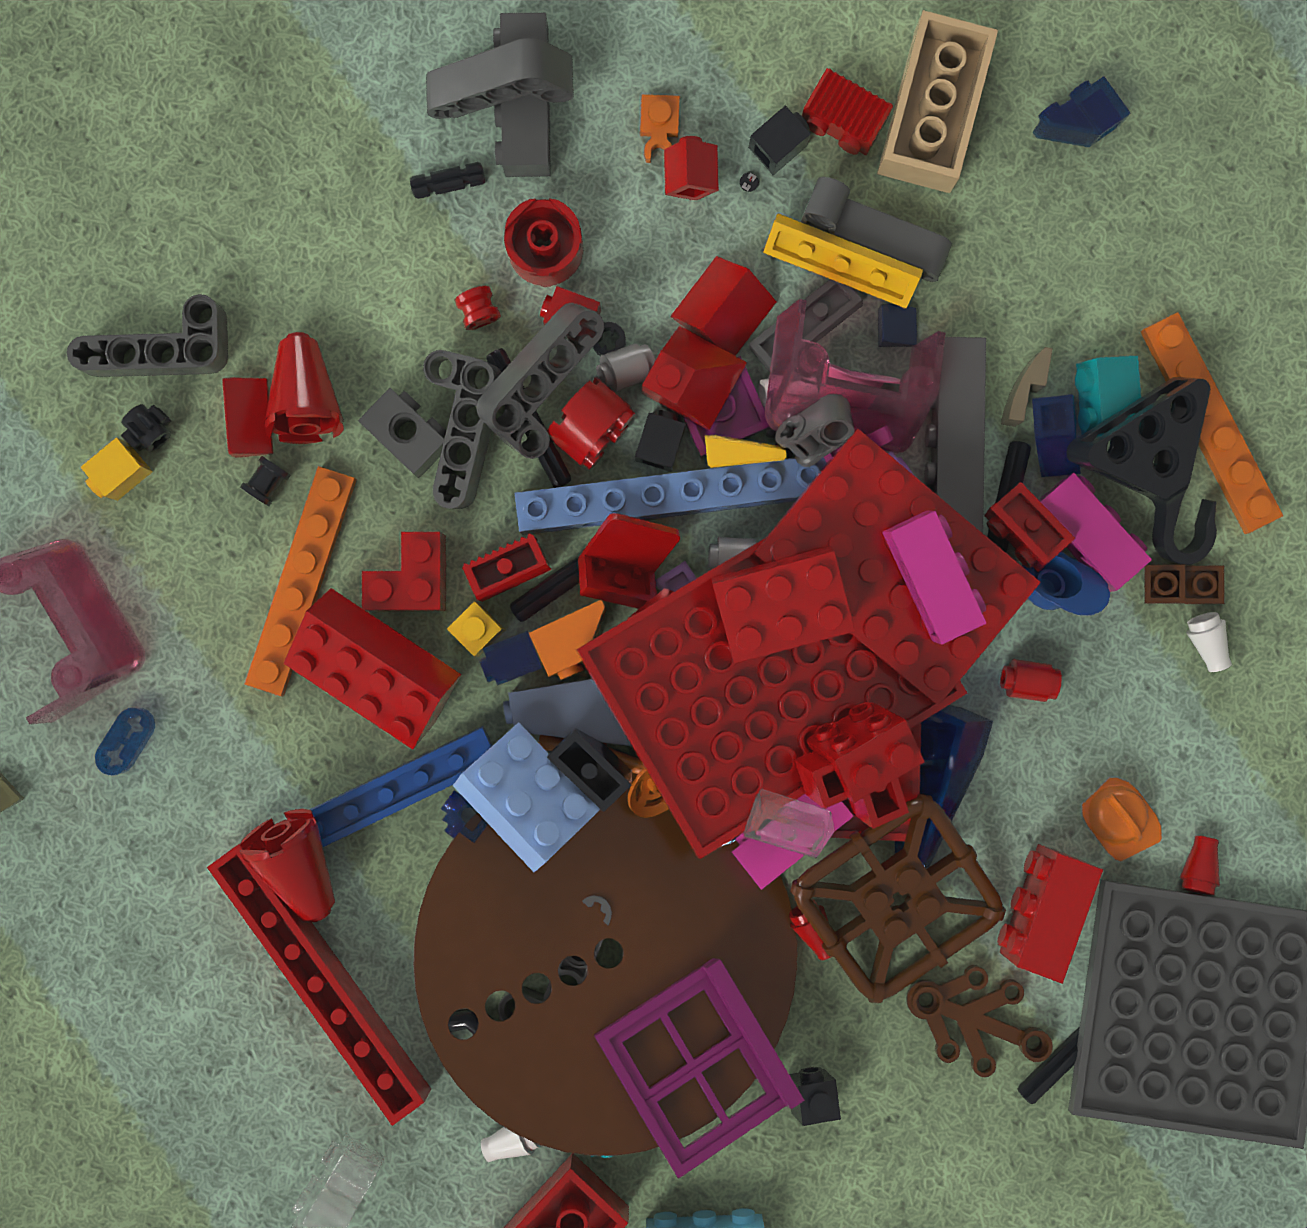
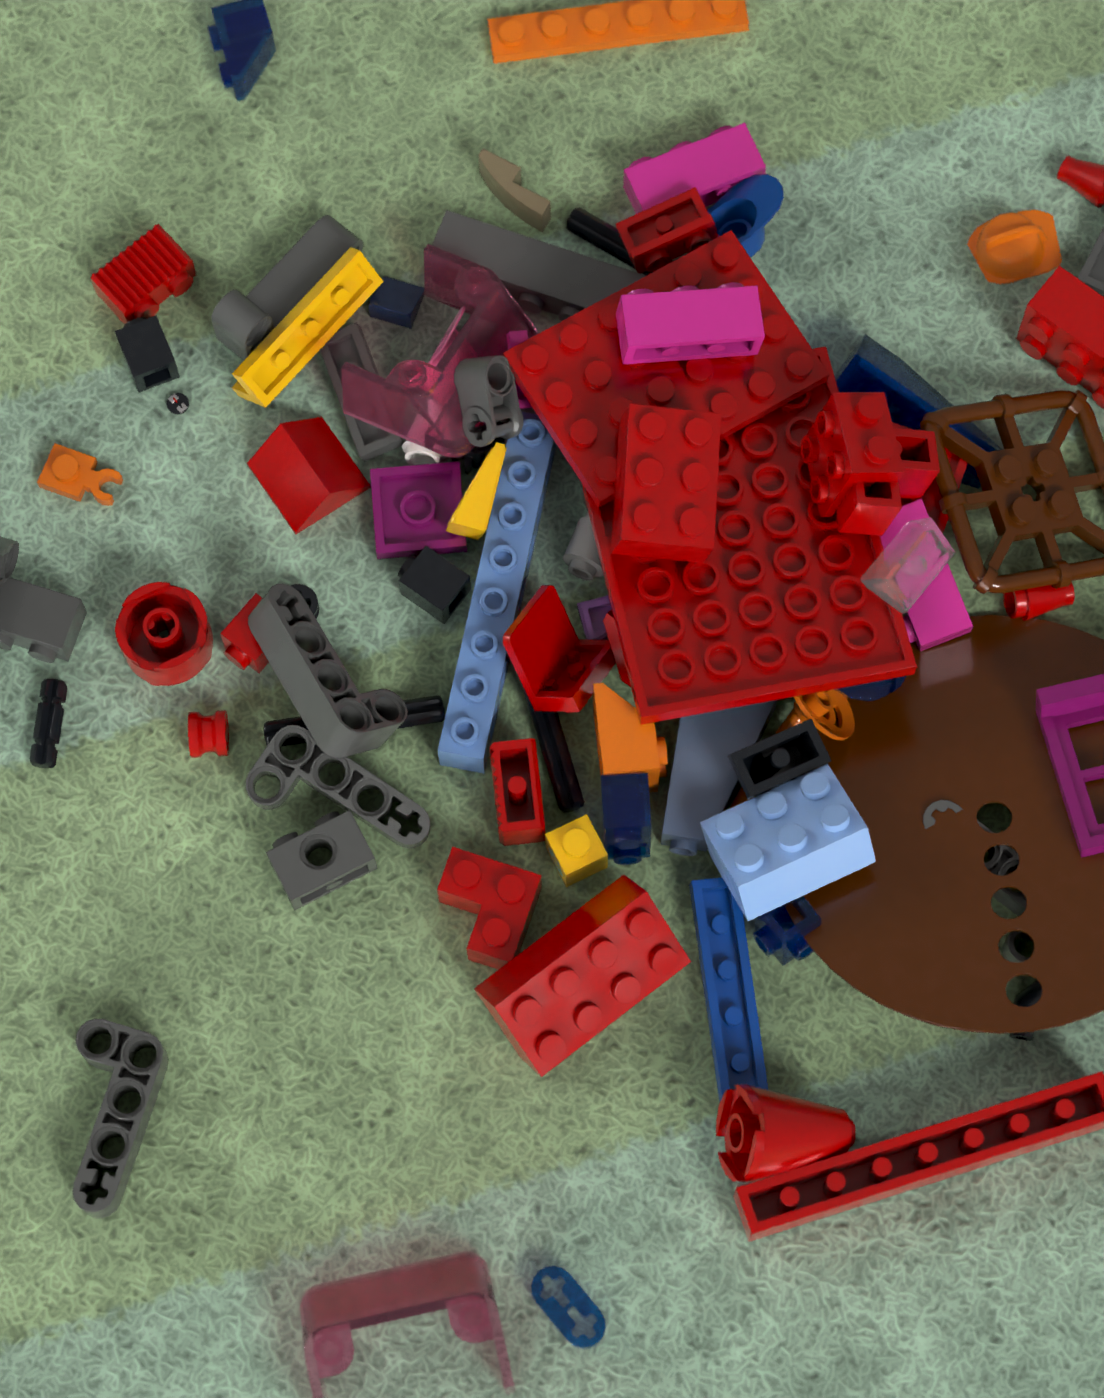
camera: 70 degrees left, 15 degrees down
(115, 470) = (243, 1208): yellow brick -> none
(146, 428) = (206, 1154): black gear -> none
(245, 416) = (235, 1036): red slope -> none
(265, 481) = (319, 1038): black bush -> none
(300, 578) = (450, 1039): orange plate -> none
(301, 394) = (234, 957): red cone -> none
(591, 422) = (387, 645): red brick -> none
(625, 366) = (337, 593): light grey brick -> none
(691, 168) = (143, 453): red brick -> none
(693, 377) = (377, 523): red slope -> none
(937, 101) = (172, 180): tan brick -> none
(1031, 680) = (834, 286): red brick -> none
(1054, 430) = (577, 175): clear blue slope -> none
(1106, 388) = (555, 111): teal brick -> none
(1173, 439) = (639, 84): black piece -> none
(1183, 584) = (782, 104): reddish brown slope -> none
(1210, 639) = (850, 96): white cone -> none

